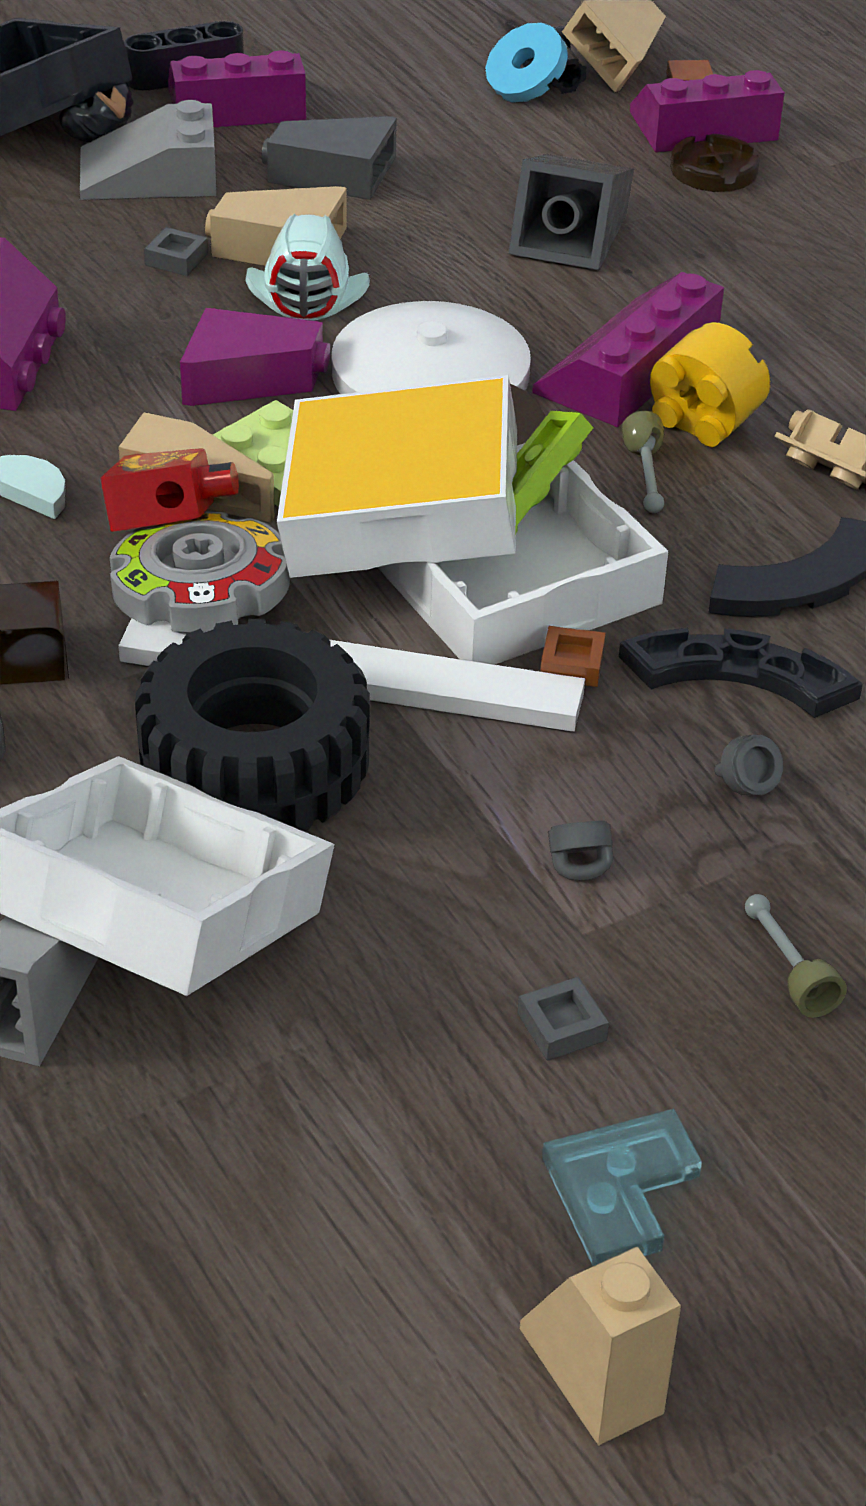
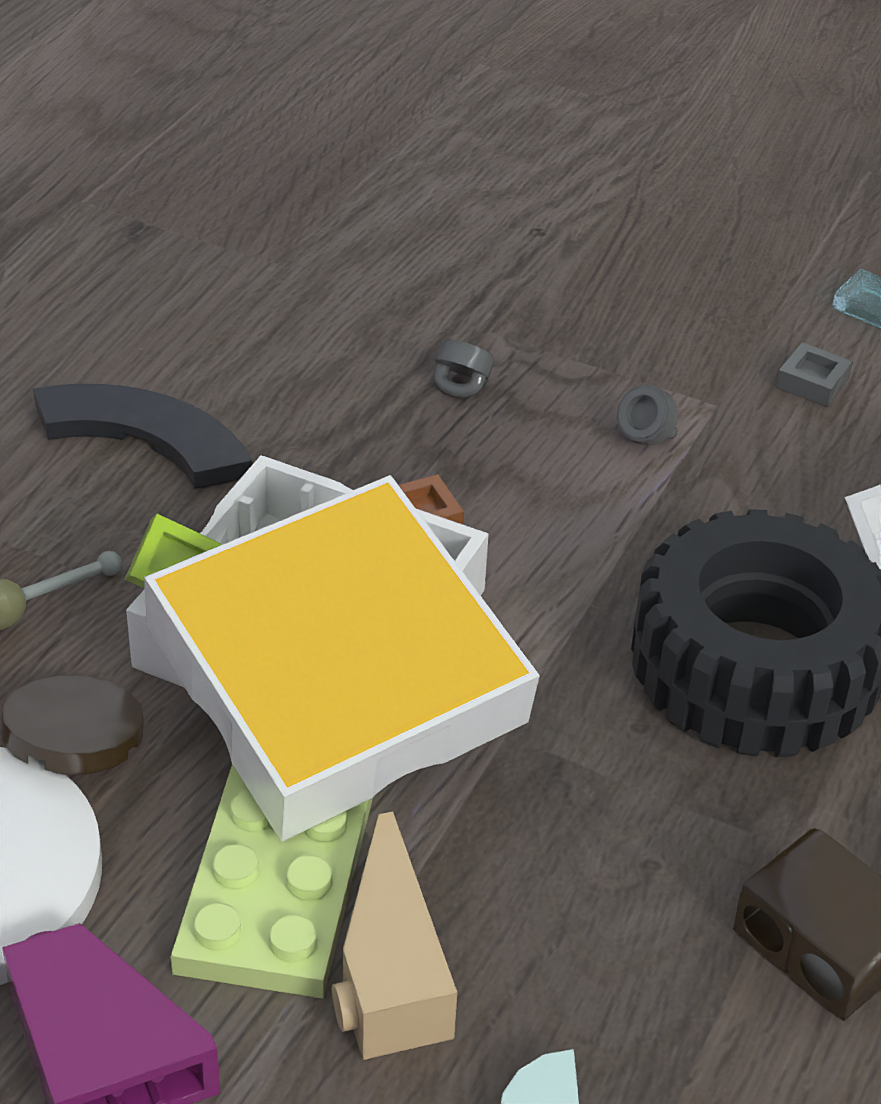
camera: 125 degrees left, 0 degrees up
(164, 487) = (494, 900): red torso -> none
(199, 572) = (571, 822): light grey piece -> none
(423, 680) = (596, 680): white tile -> none
(743, 658) = (307, 426): black tile -> none
(812, 985) = (655, 277): olive hinge -> none

